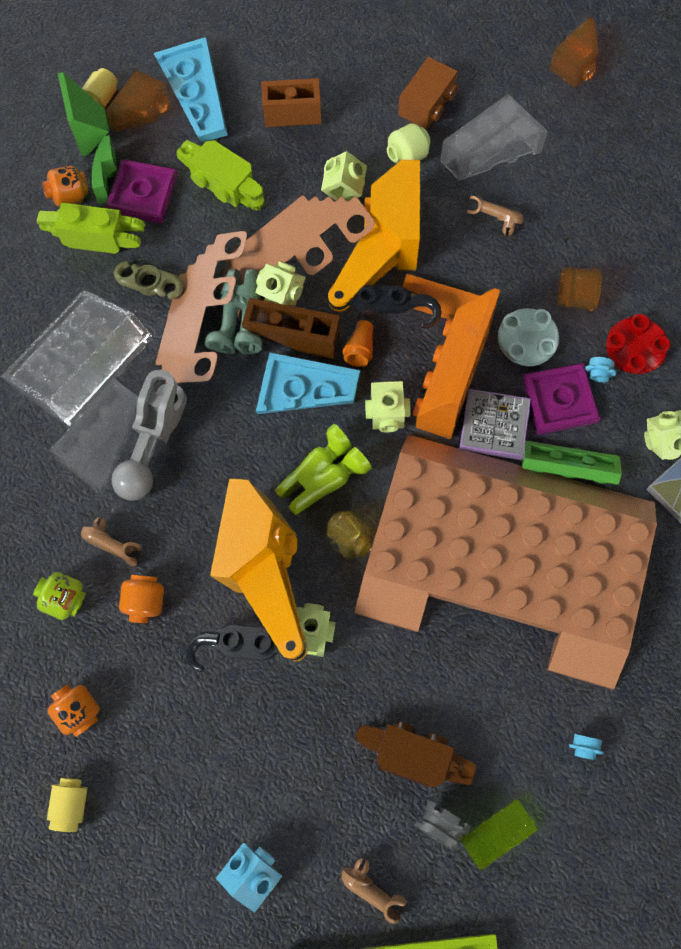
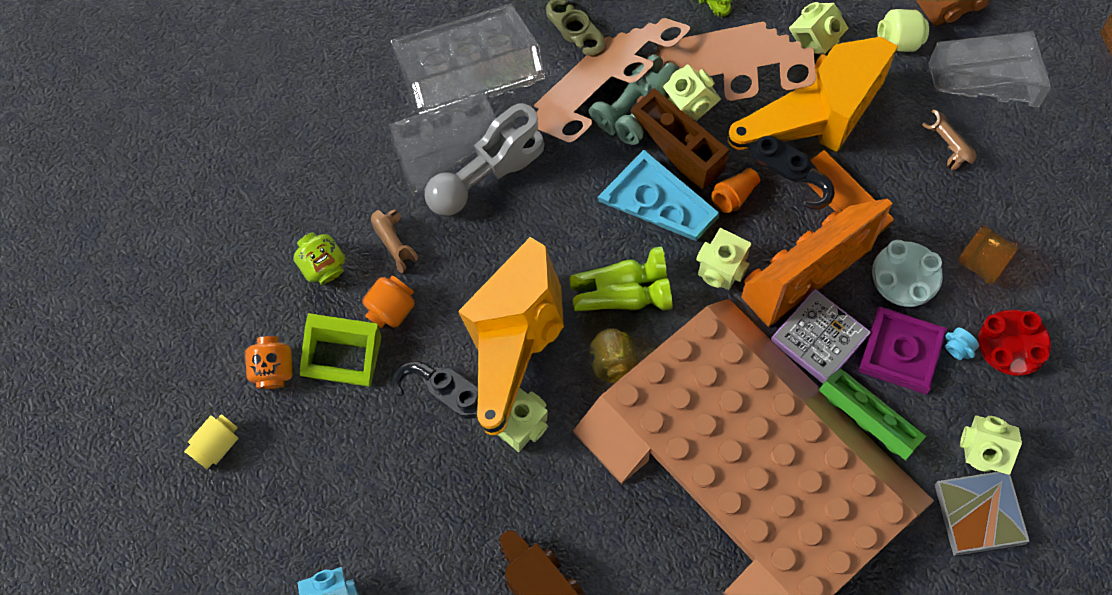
camera: 30 degrees right, 5 degrees down
(120, 645) = (341, 332): none -> lime tile

